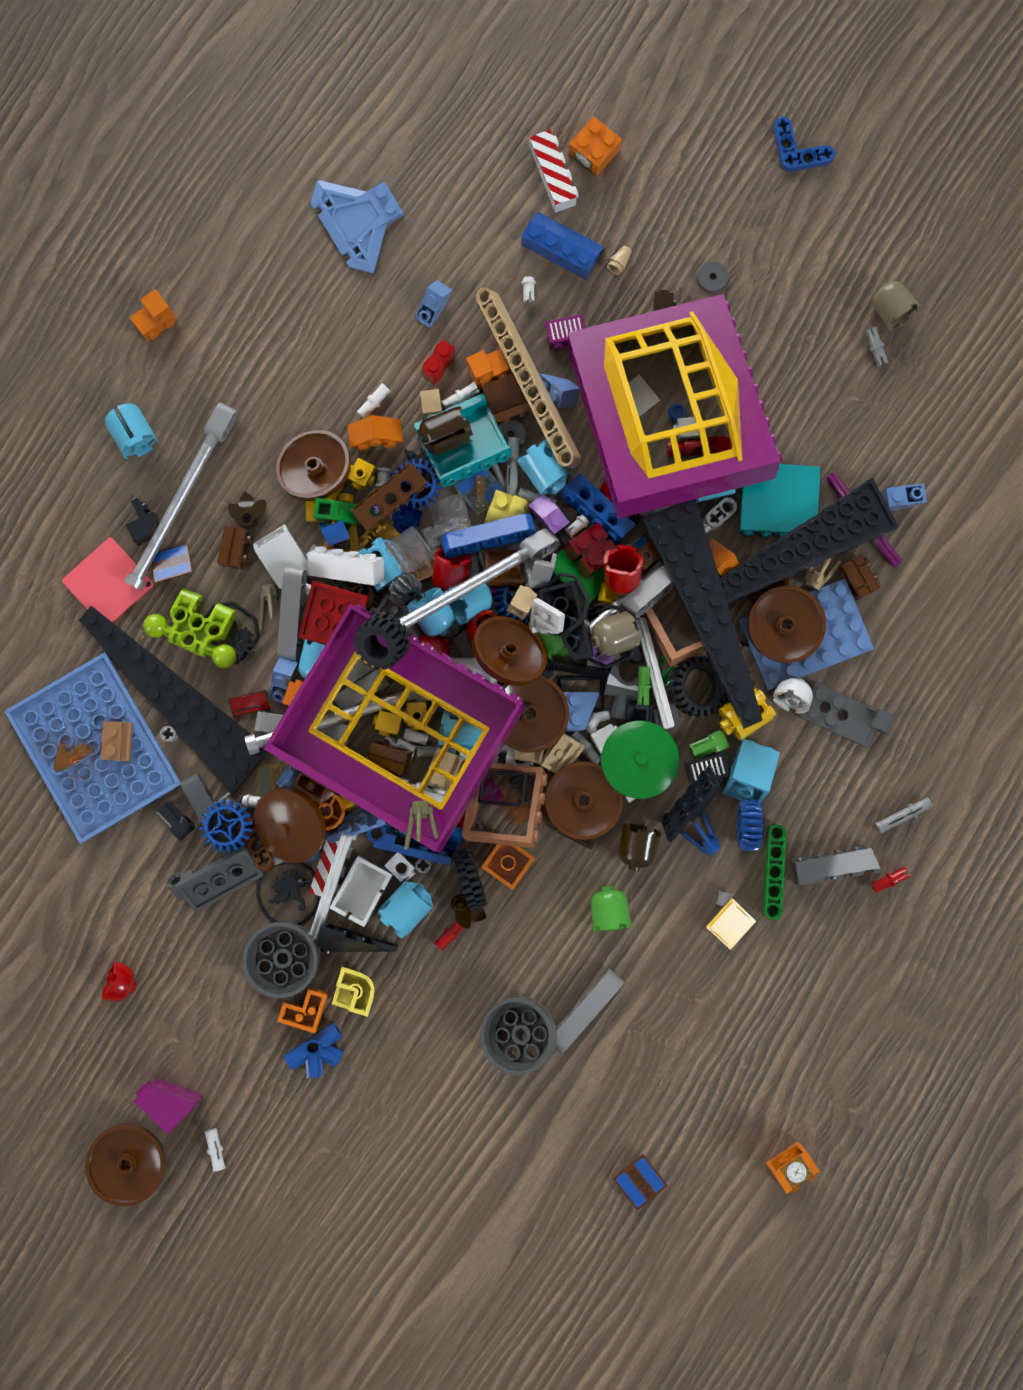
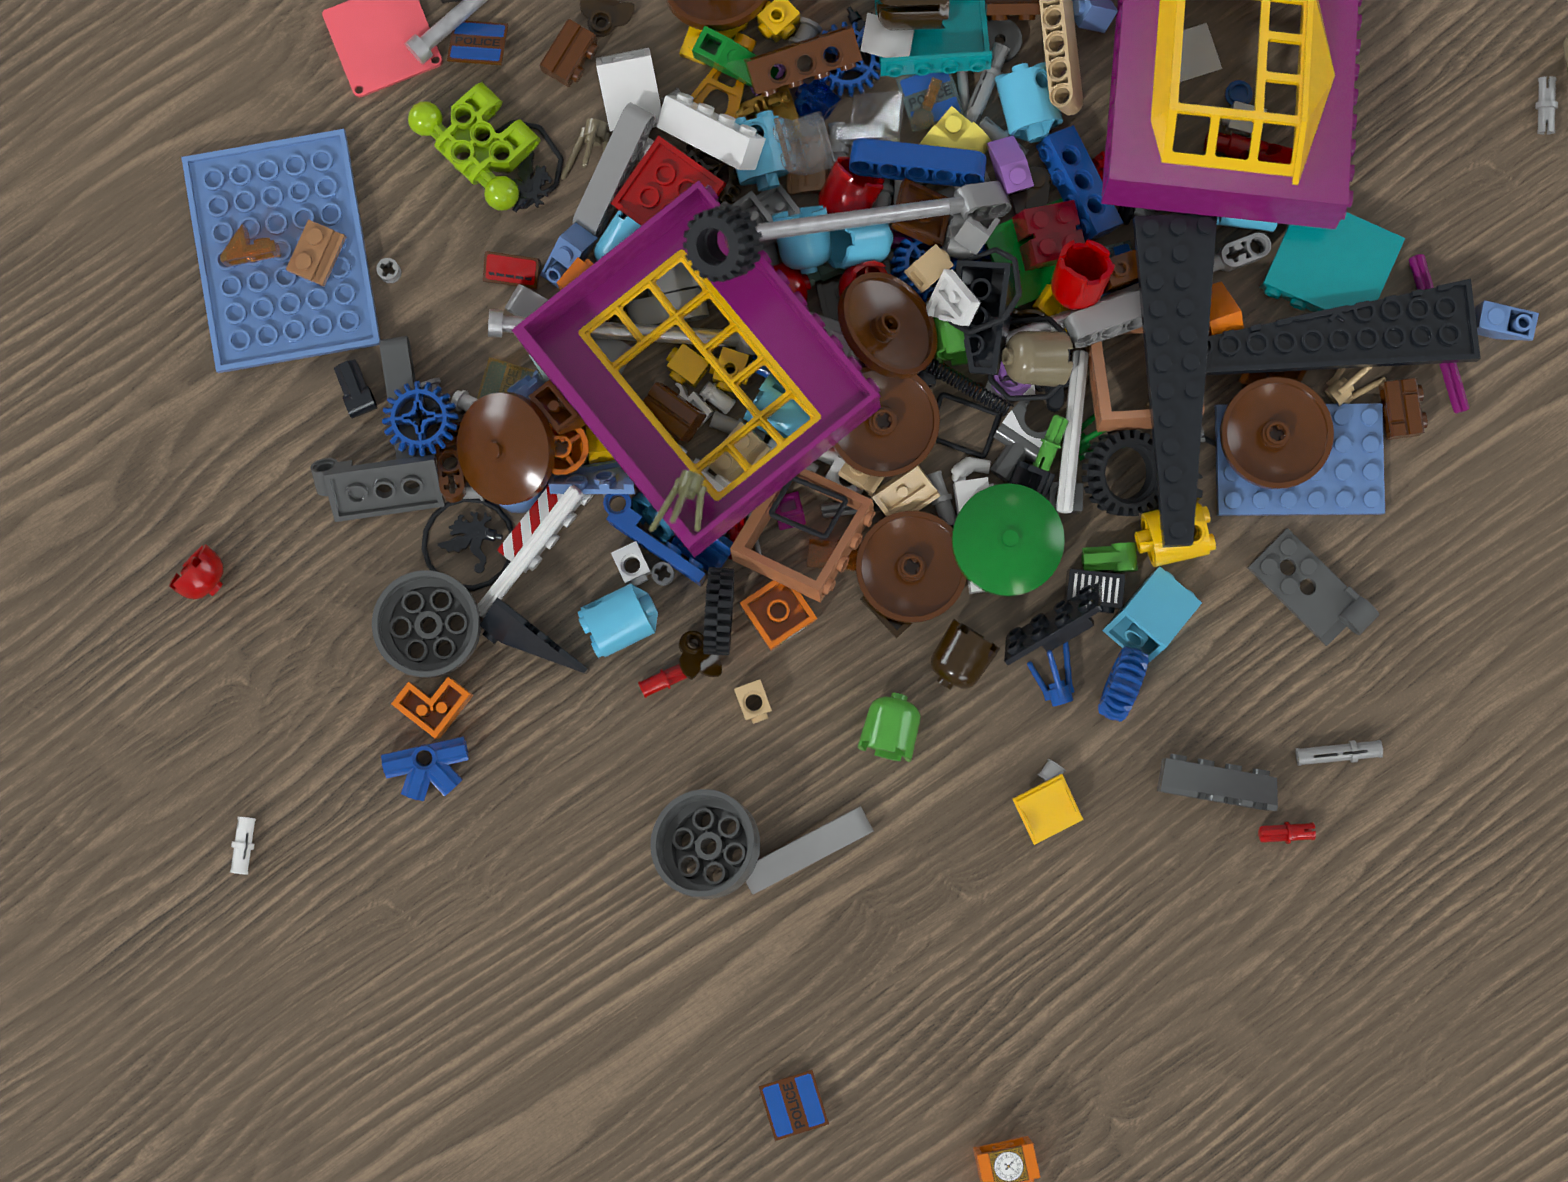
camera: 25 degrees right, 0 degrees up
(125, 1164) = (118, 818): reddish brown dish -> none
(166, 1103) = (203, 757): magenta slope -> none
(198, 720) = (435, 270): black wing -> none
(334, 533) = (712, 82): blue panel -> none
(354, 991) = (507, 704): light yellow brick -> none
(361, 890) = (567, 574): white piece -> none
(405, 589) = (778, 192): dark grey gear -> none
(436, 465) = (883, 41): none -> white sticker
(505, 923) = (747, 690): none -> tan brick
(580, 523) = (1042, 196): white pin -> none
(580, 709) = (952, 444): medium blue wing -> none
(778, 880) = (1142, 750): green beam -> none
(793, 694) = (1250, 533): white cylinder -> none

